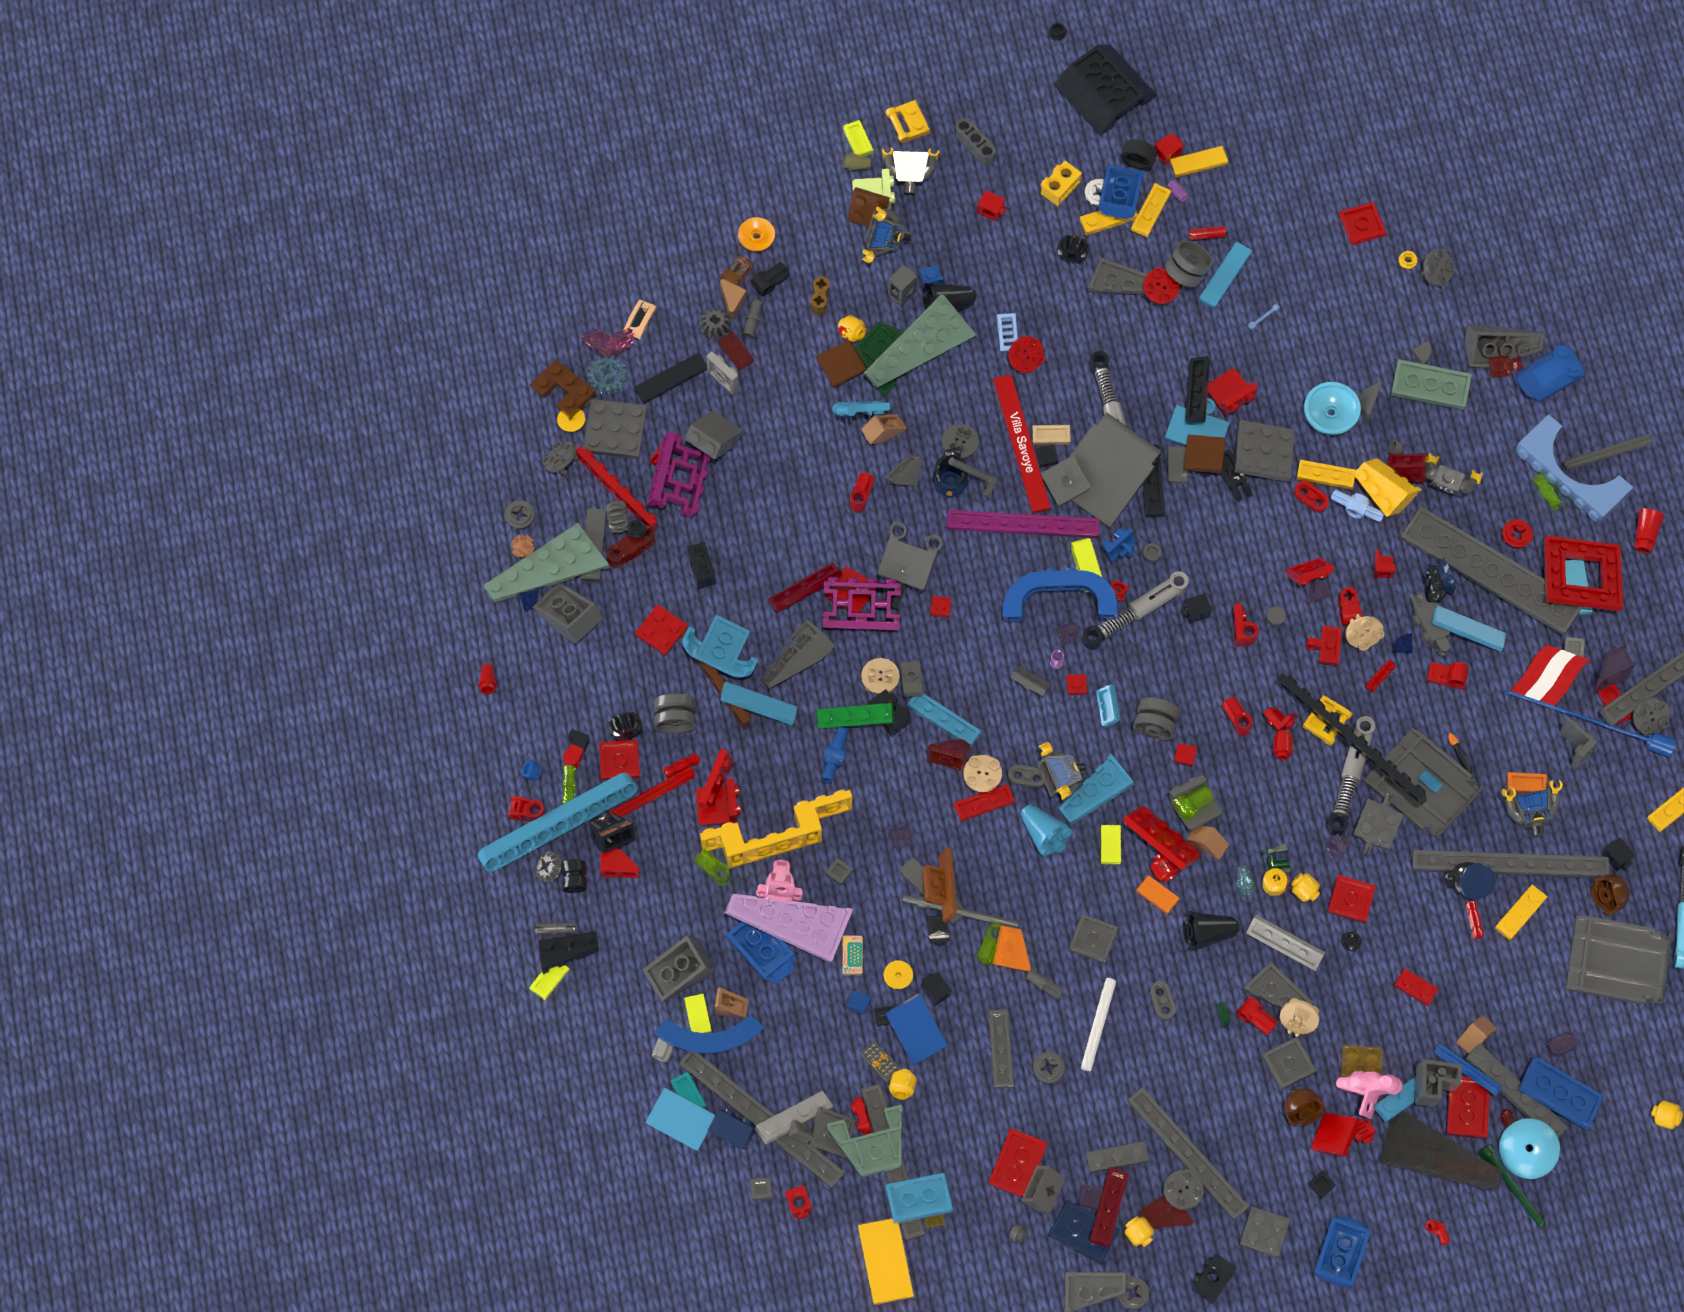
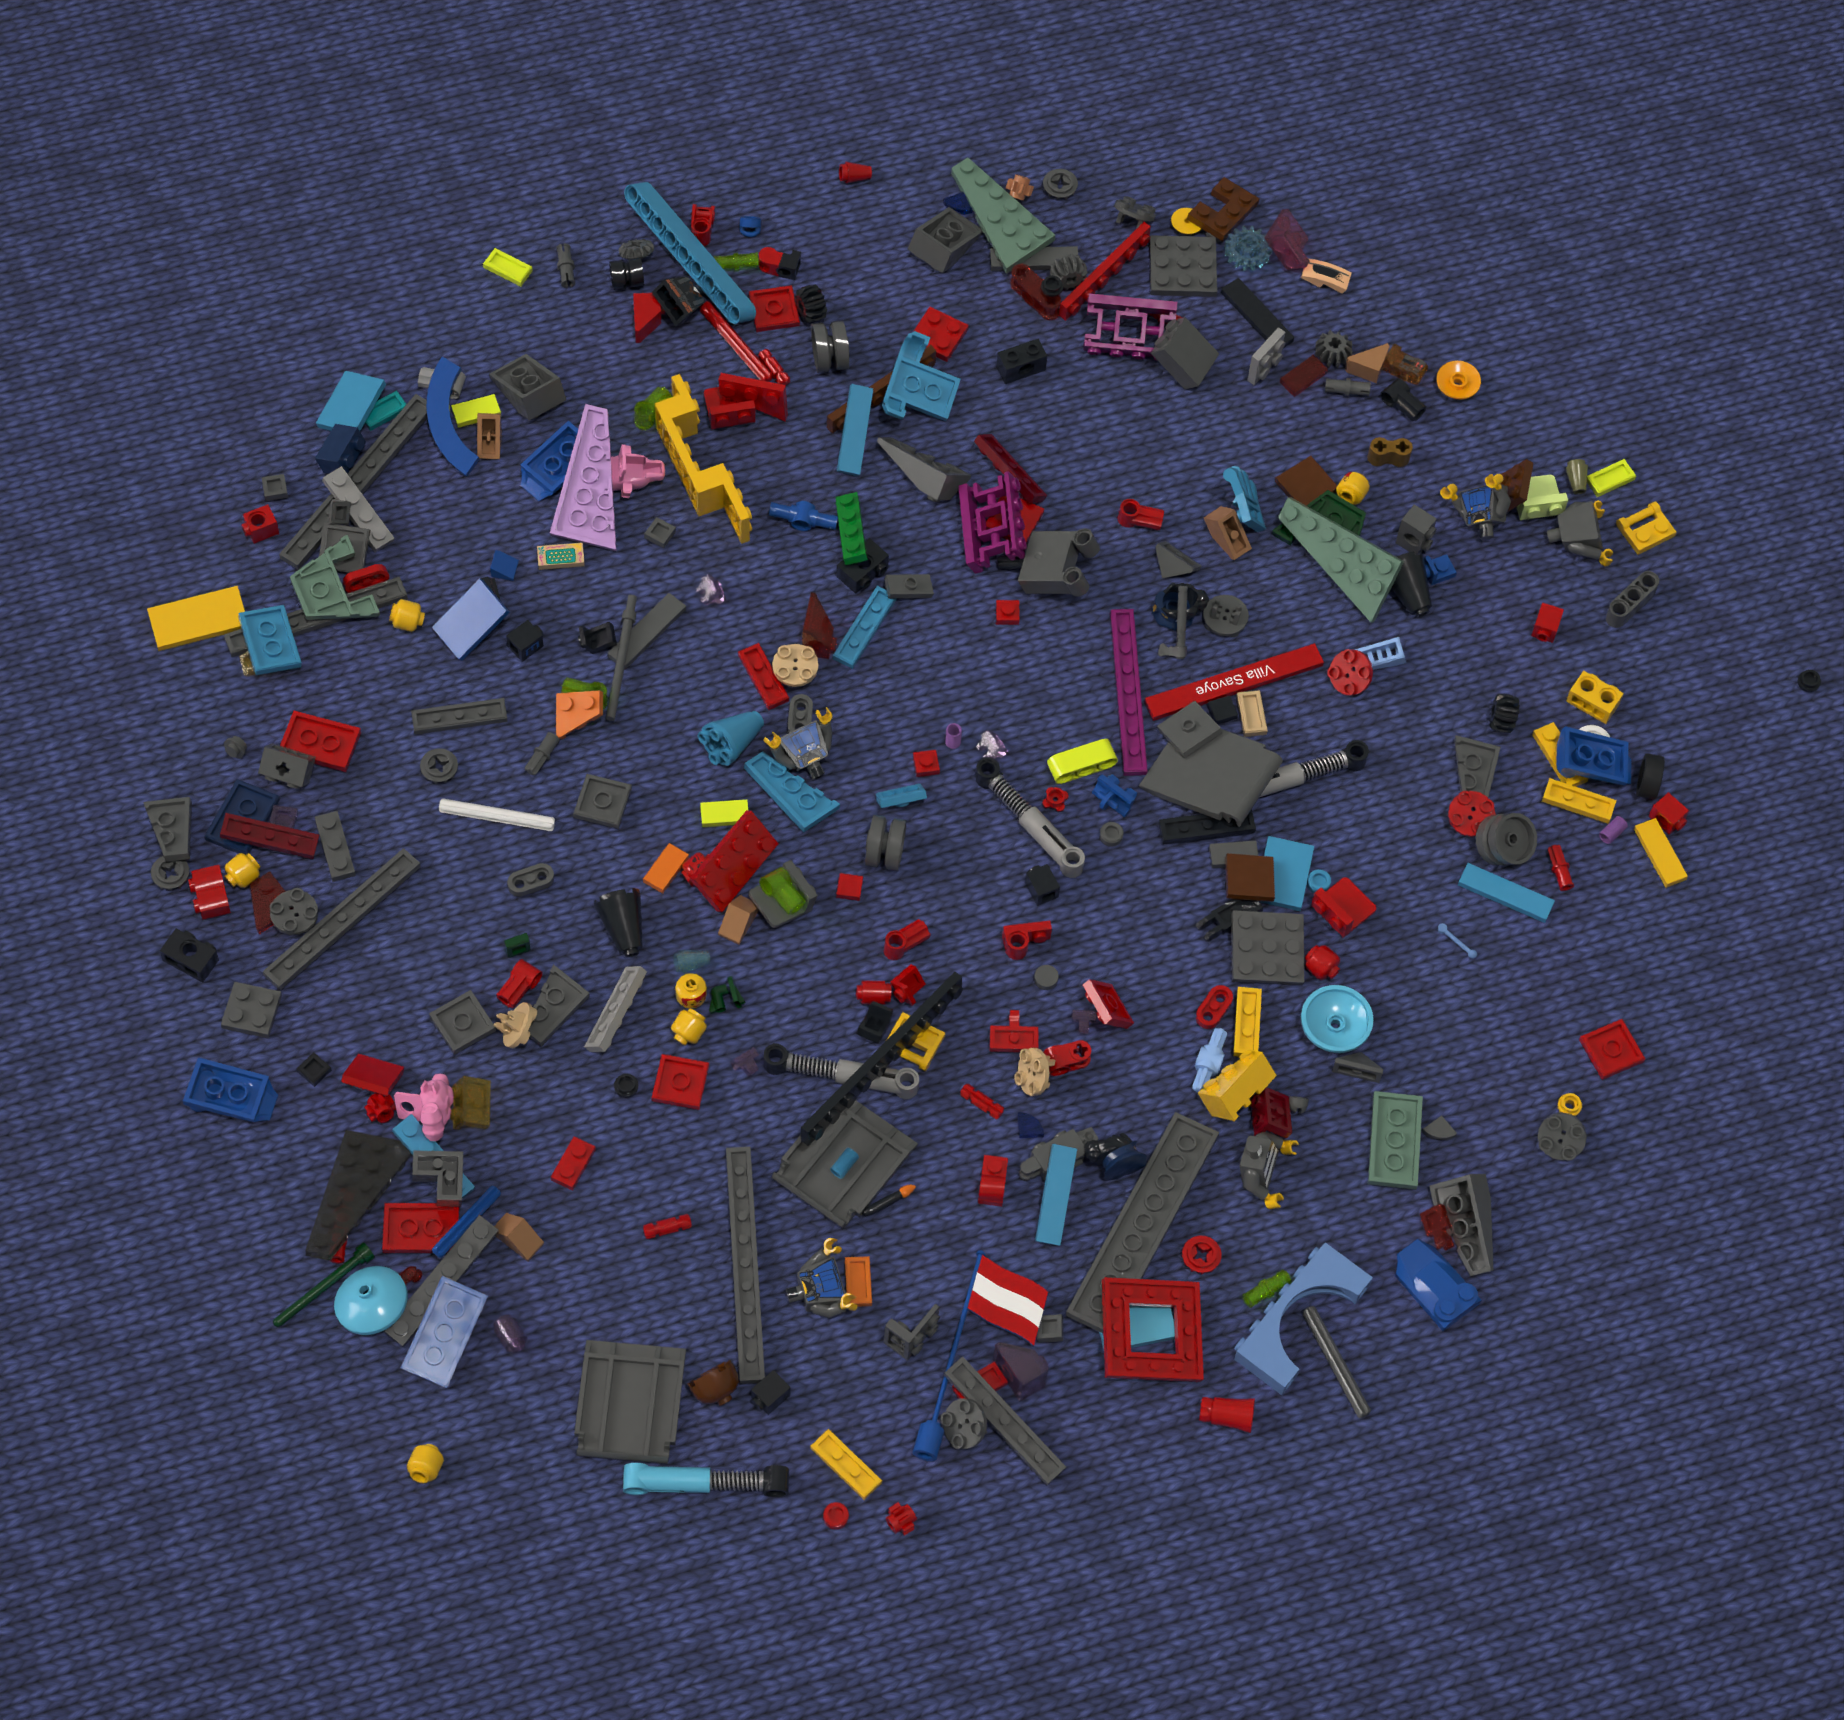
camera: 80 degrees right, 5 degrees down
(565, 948) = (541, 274): black wing -> none
(871, 676) = (909, 555): tan plate -> none
(879, 1061) = (435, 593): dark grey tile -> none
(898, 974) = (540, 602): yellow piece -> none
(940, 884) = (649, 625): dark orange bracket -> none
(1031, 681) = (922, 711): dark grey plate -> none
(1056, 581) = (1044, 767): blue arch -> none
(1103, 87) = (1743, 735): black slope -> none
(1156, 1259) = (210, 892): none -> red brick
(1197, 390) = (1336, 865): black plate -> none
(1279, 413) = (1322, 962): none -> red head
(1303, 1107) = (406, 1035): reddish brown cylinder -> none
(1311, 746) = (875, 1022): none -> black bracket
(1377, 824) = (780, 1105): dark grey plate -> none
(1383, 566) = (1133, 1095): red panel -> none
(1438, 1229) = (264, 1202): red arm -> none
(1471, 880) = (713, 1212): dark blue piece -> none
(1521, 912) = (683, 1281): yellow plate -> none

